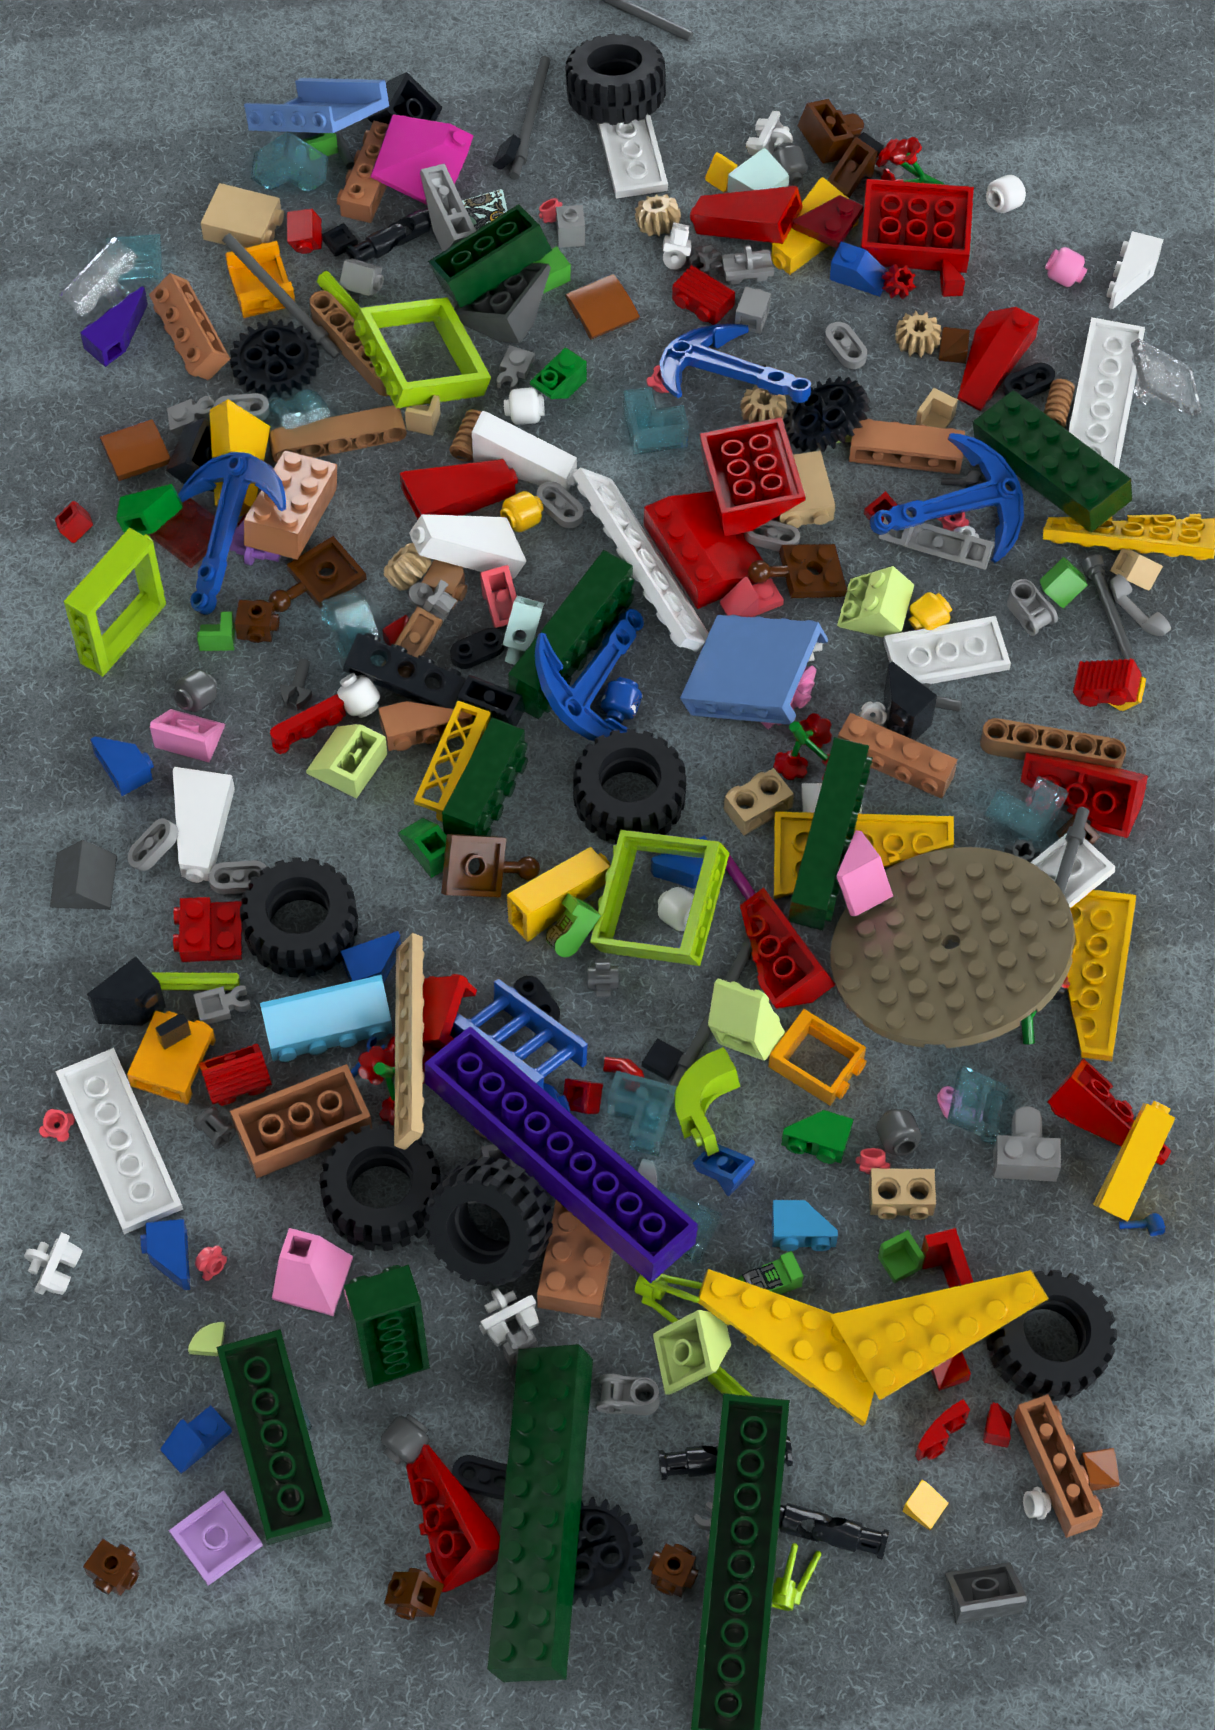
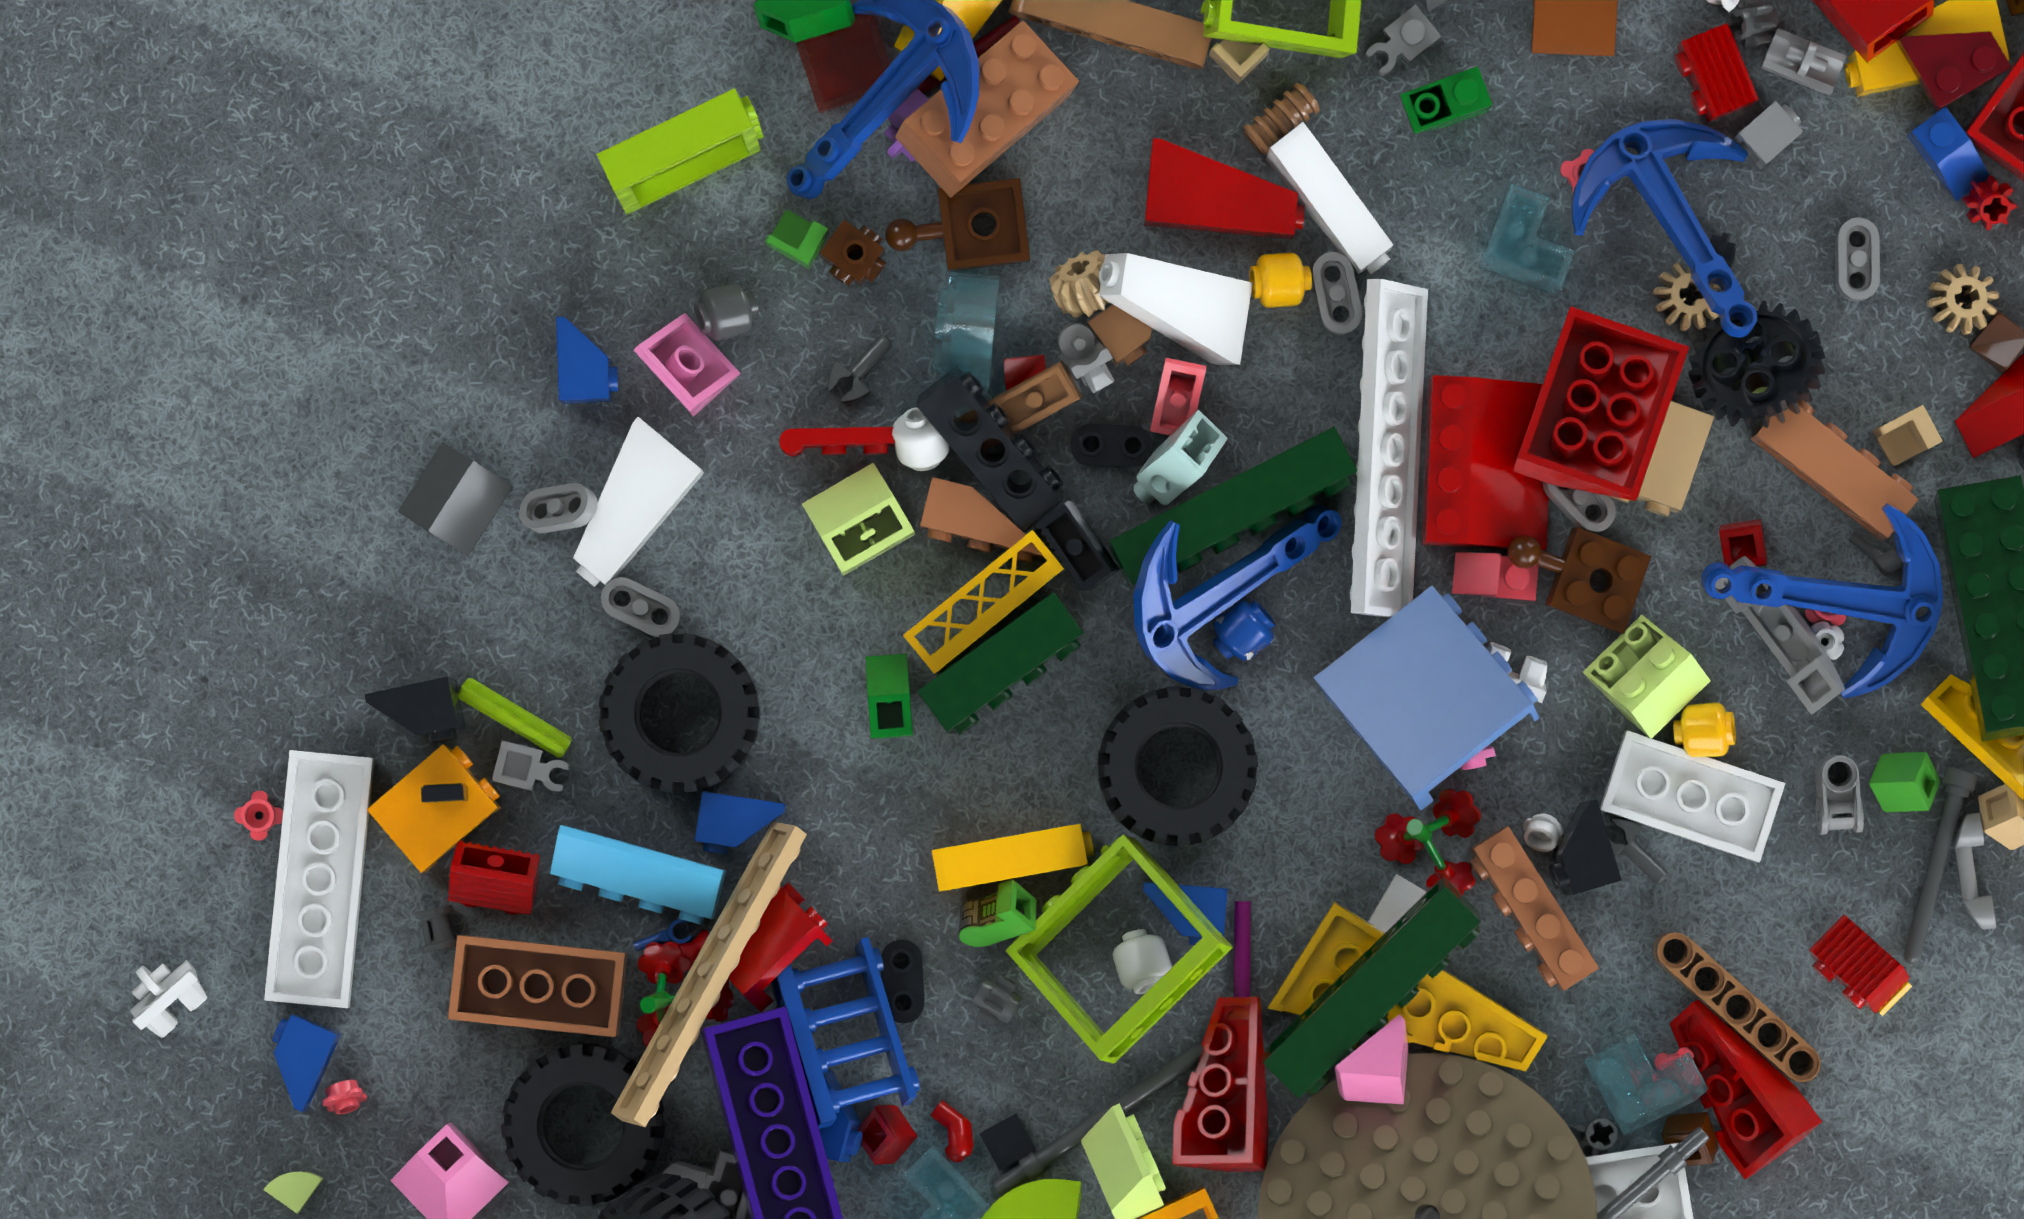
camera: 25 degrees right, 25 degrees up
(208, 930) = (567, 658): red plate -> none
(488, 878) = (933, 788): reddish brown plate -> none
(524, 406) = (1377, 117): white head -> none
(762, 805) = (1326, 880): tan brick -> none

